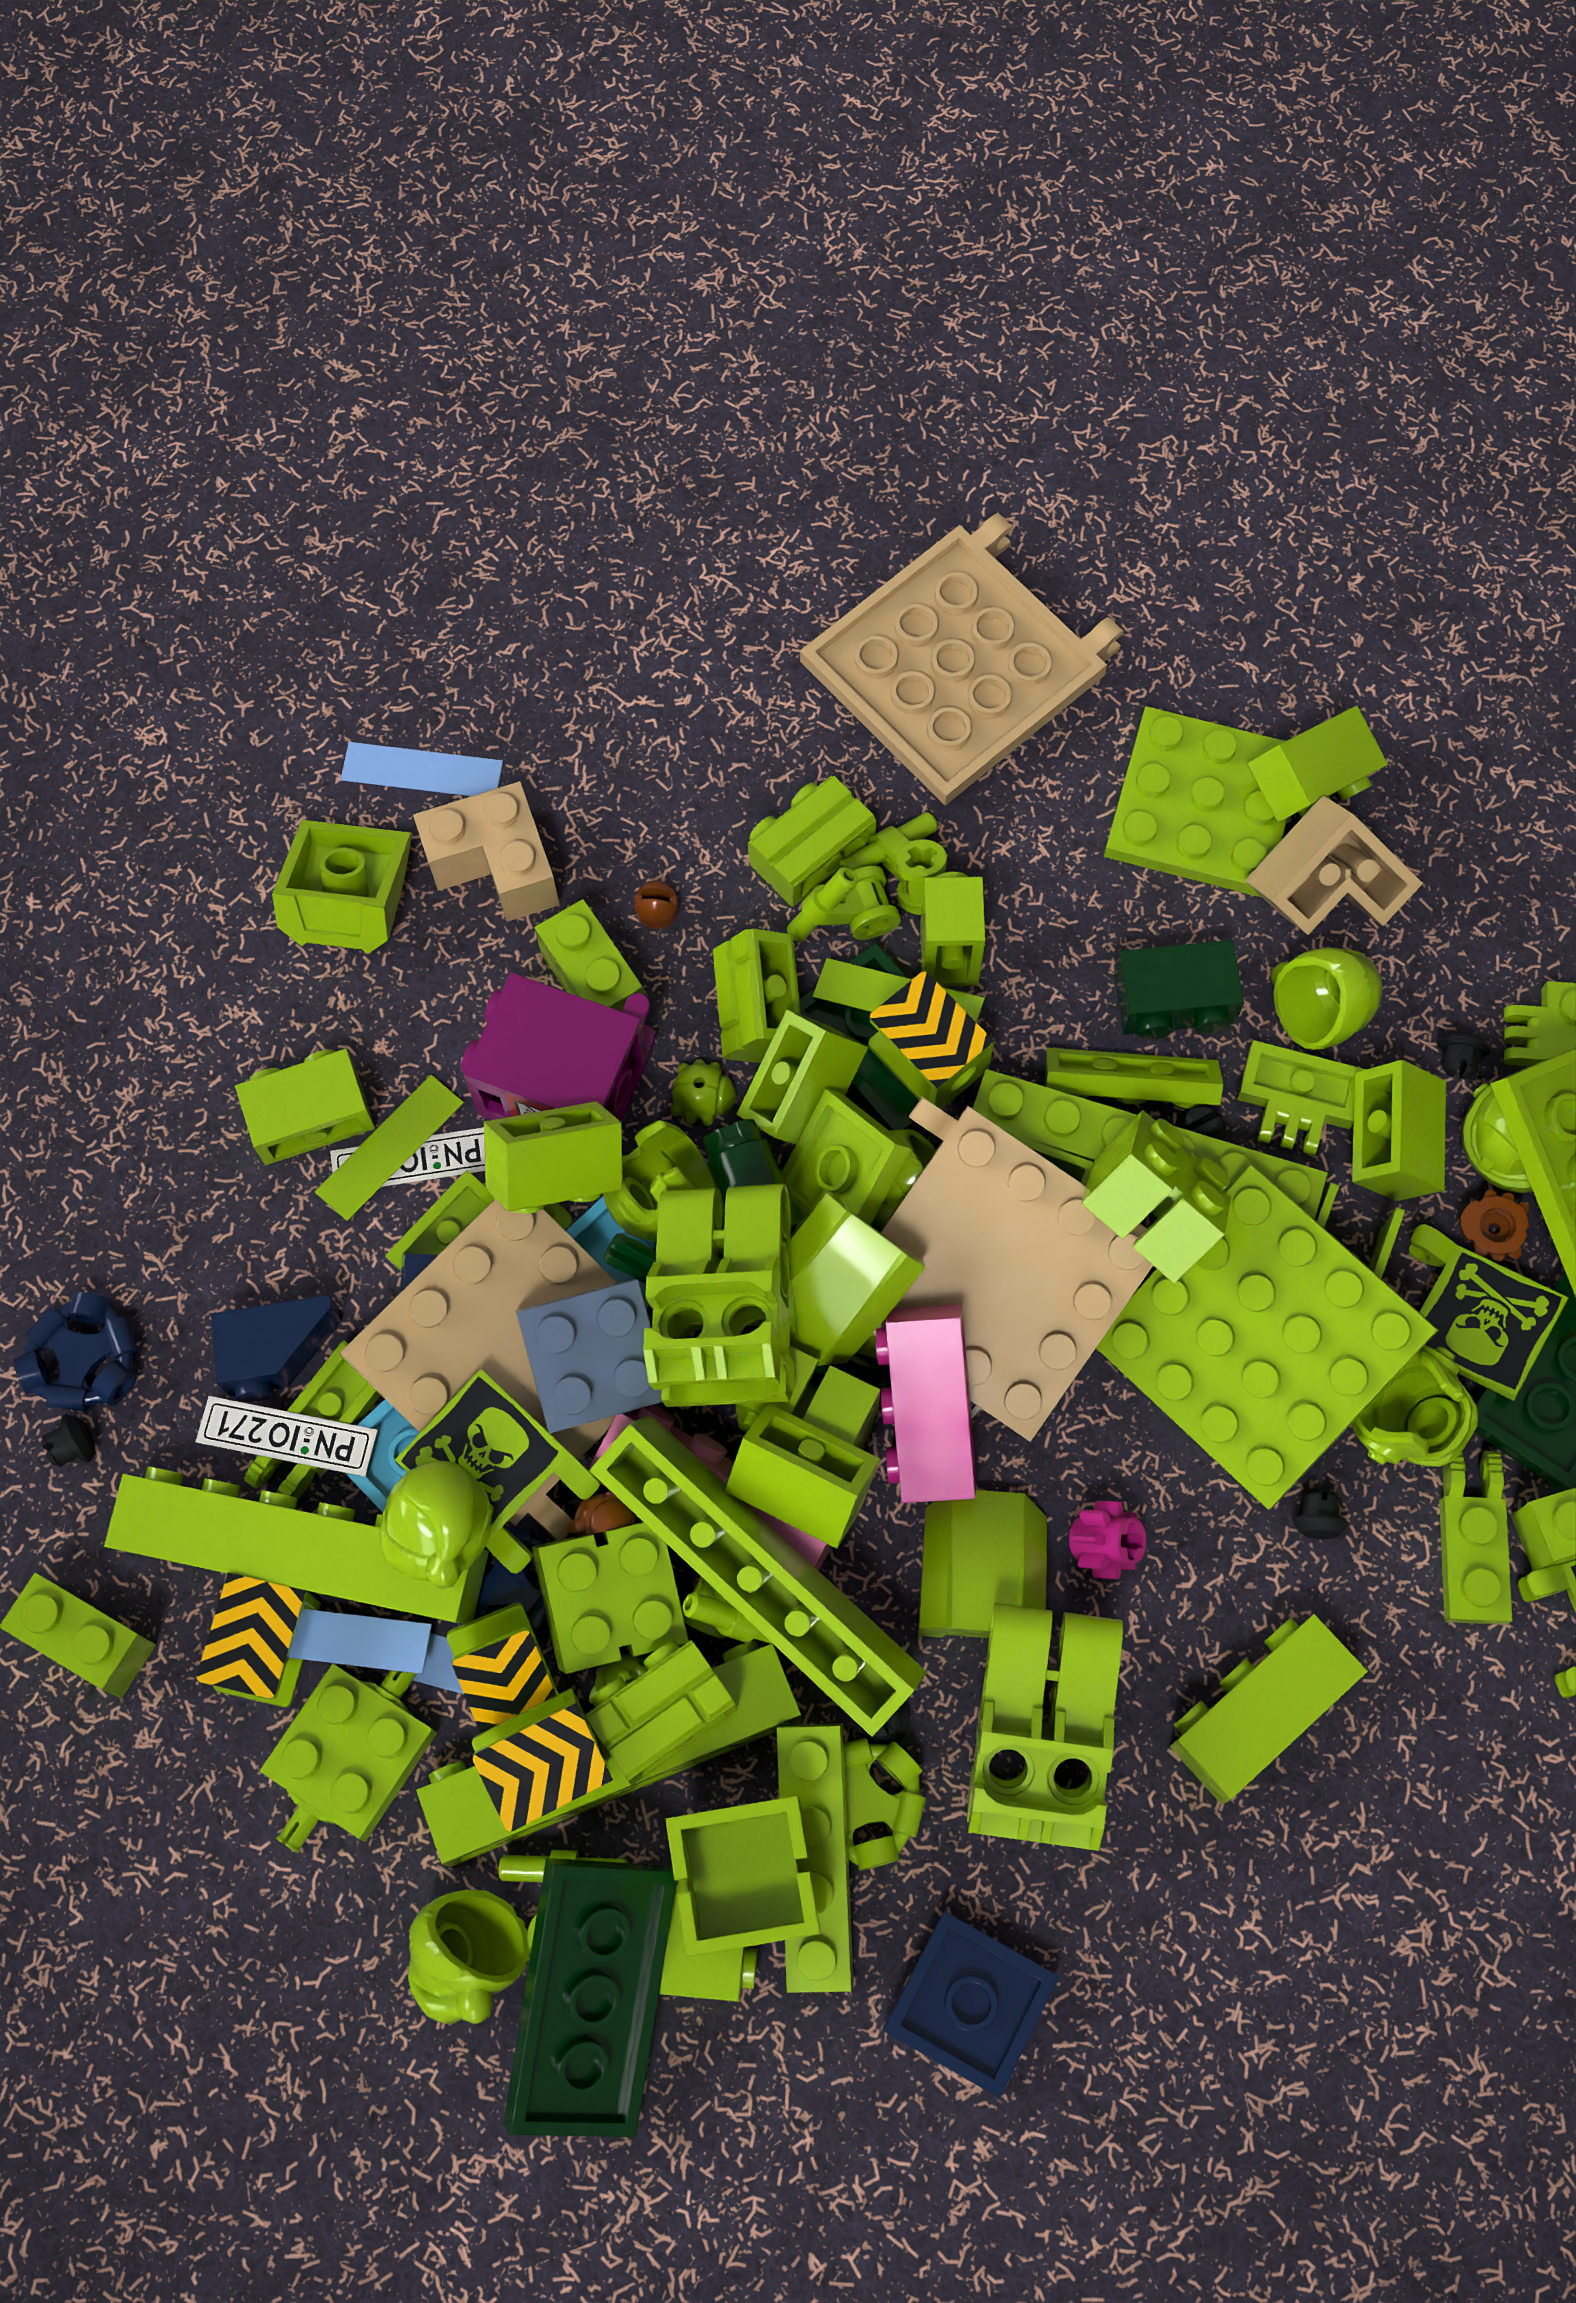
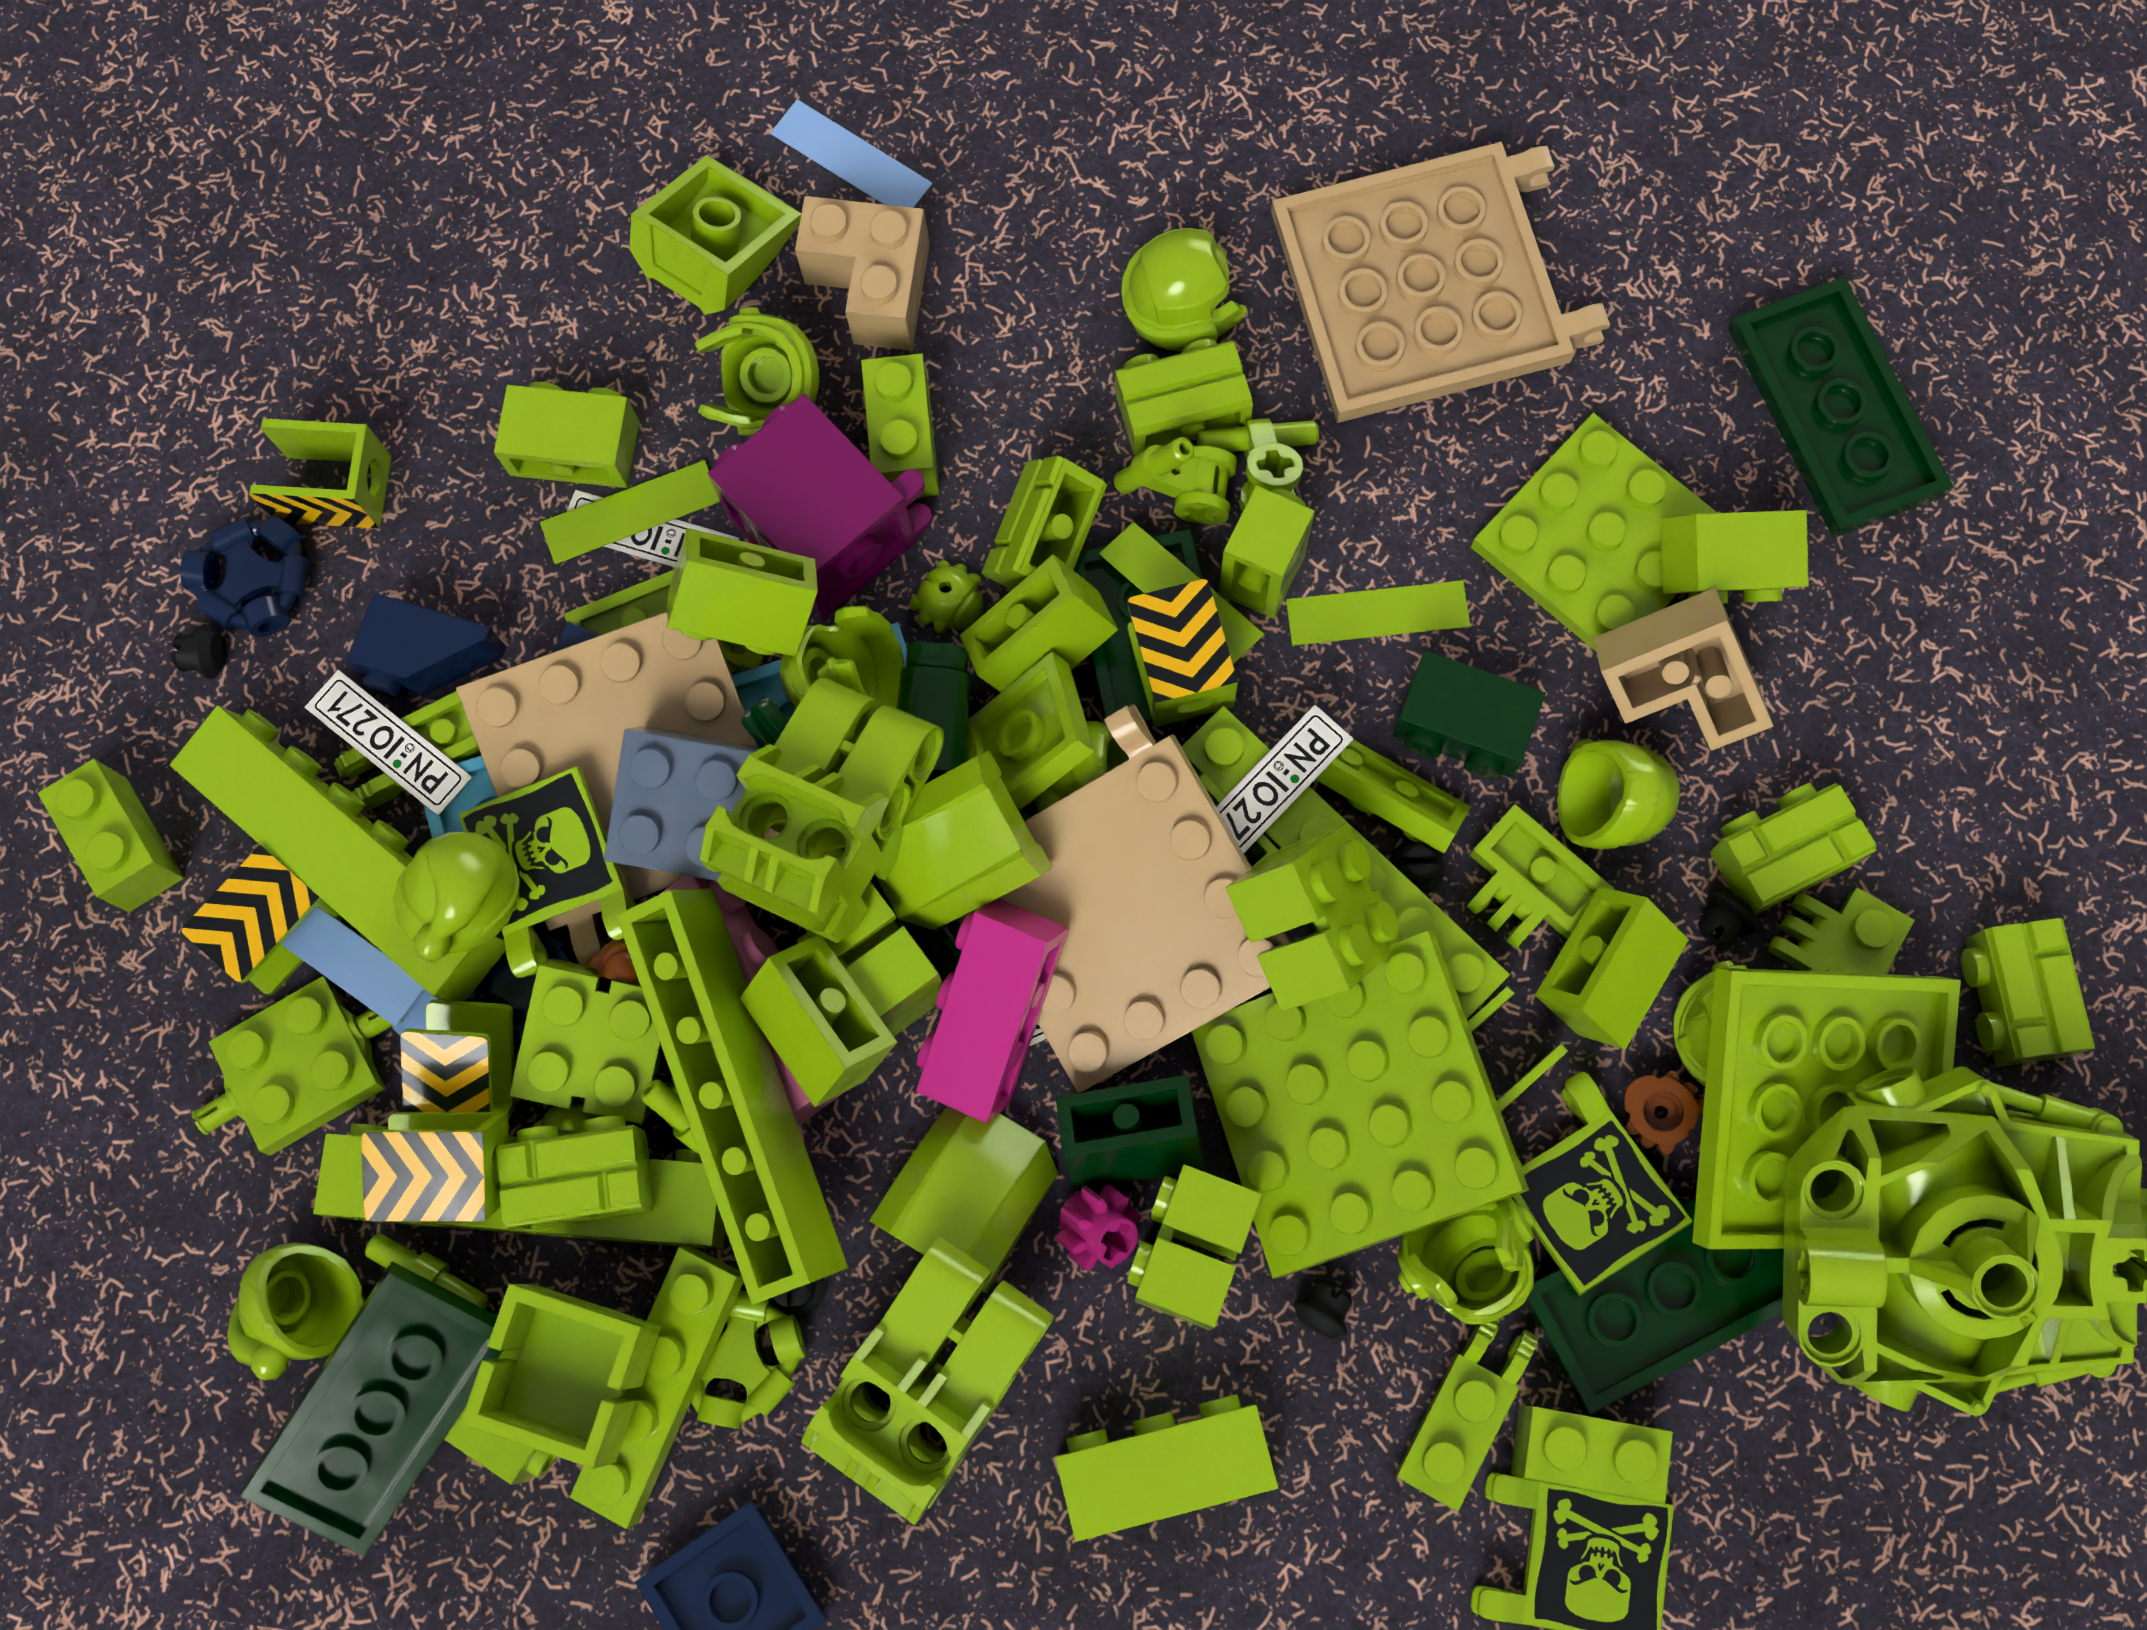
camera: 30 degrees right, 5 degrees up
(96, 1208) = (328, 442): none -> lime piece
(452, 976) = (761, 368): none -> lime helmet
(656, 912) = (996, 399): dark orange hinge -> none
(761, 755) = (1176, 287): none -> lime helmet
(1058, 942) = (1377, 612): none -> lime sticker
(1066, 1100) = (1282, 776): none -> white sticker
(1094, 1448) = (1130, 1132): none -> dark green brick
(1195, 1532) = (1204, 1214): none -> lime piece
(1332, 617) = (1839, 407): none -> dark green plate
(1484, 973) = (1792, 848): none -> lime brick

